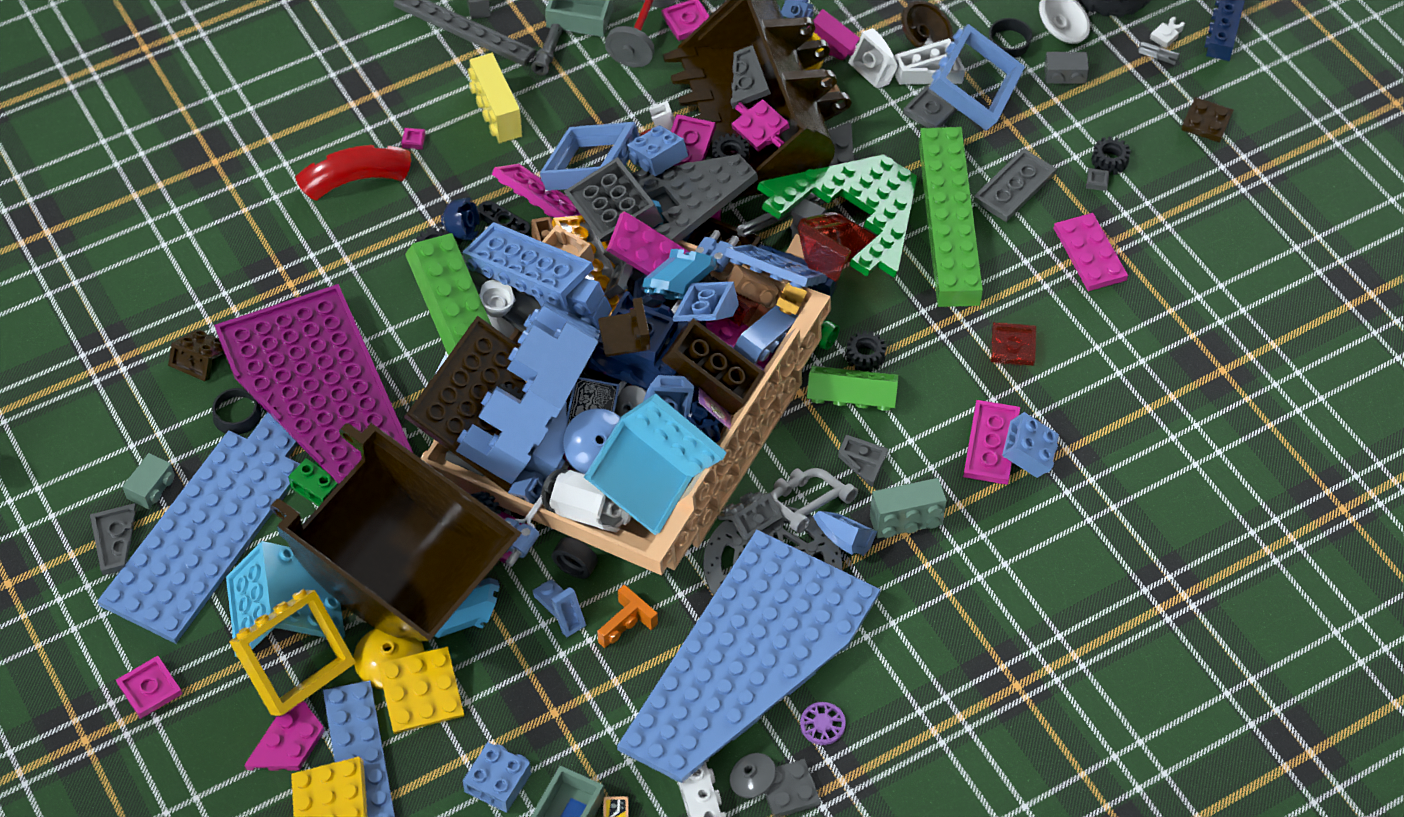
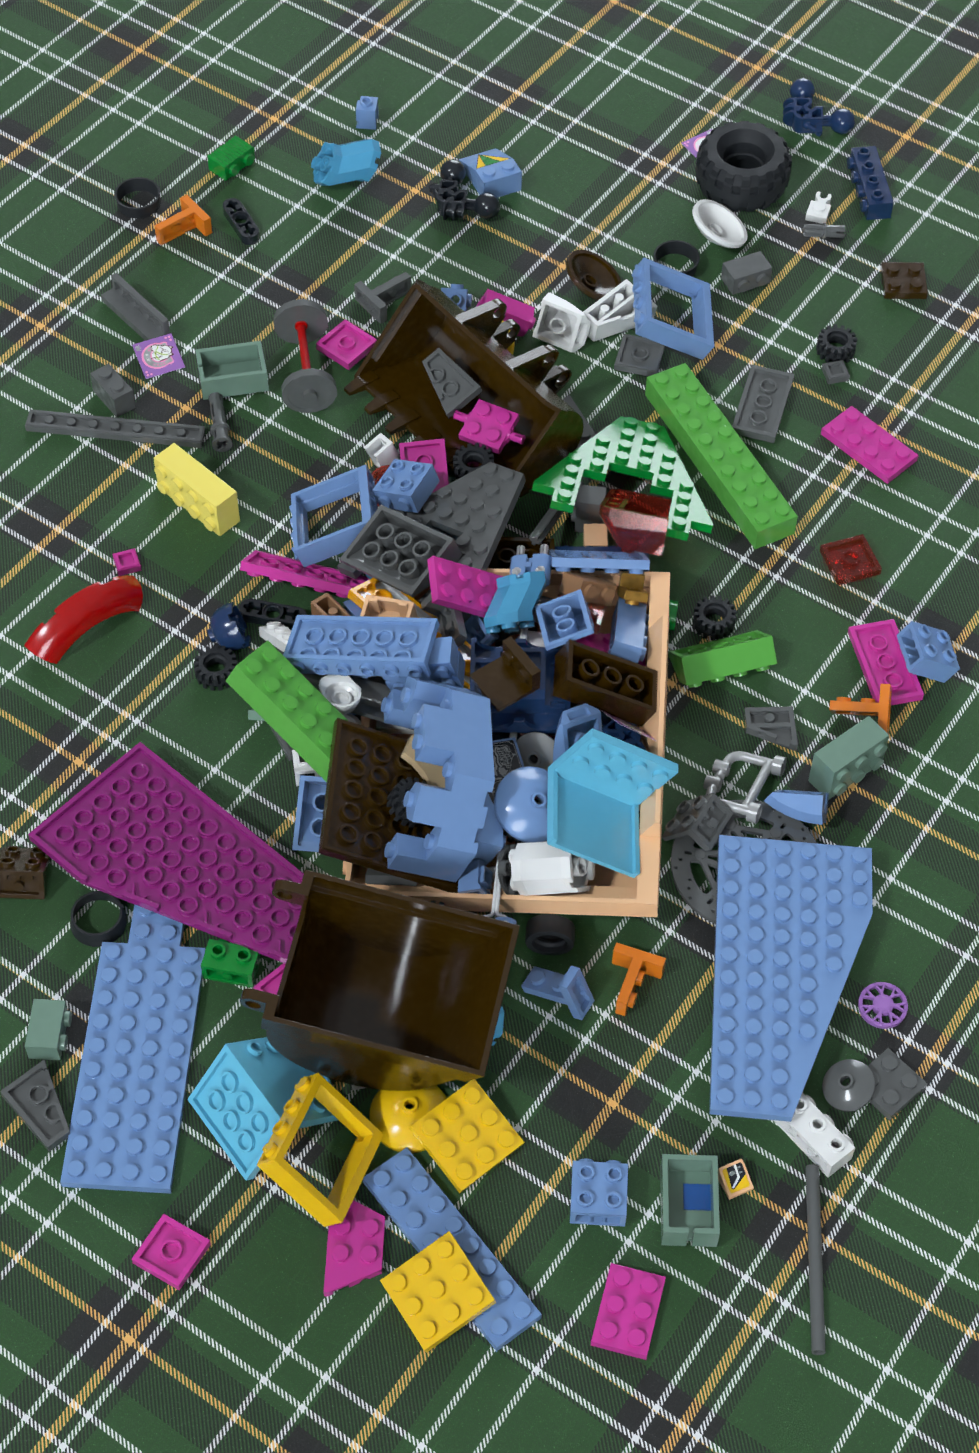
camera: 25 degrees left, 0 degrees up
(961, 477) = (867, 706): none -> orange bracket

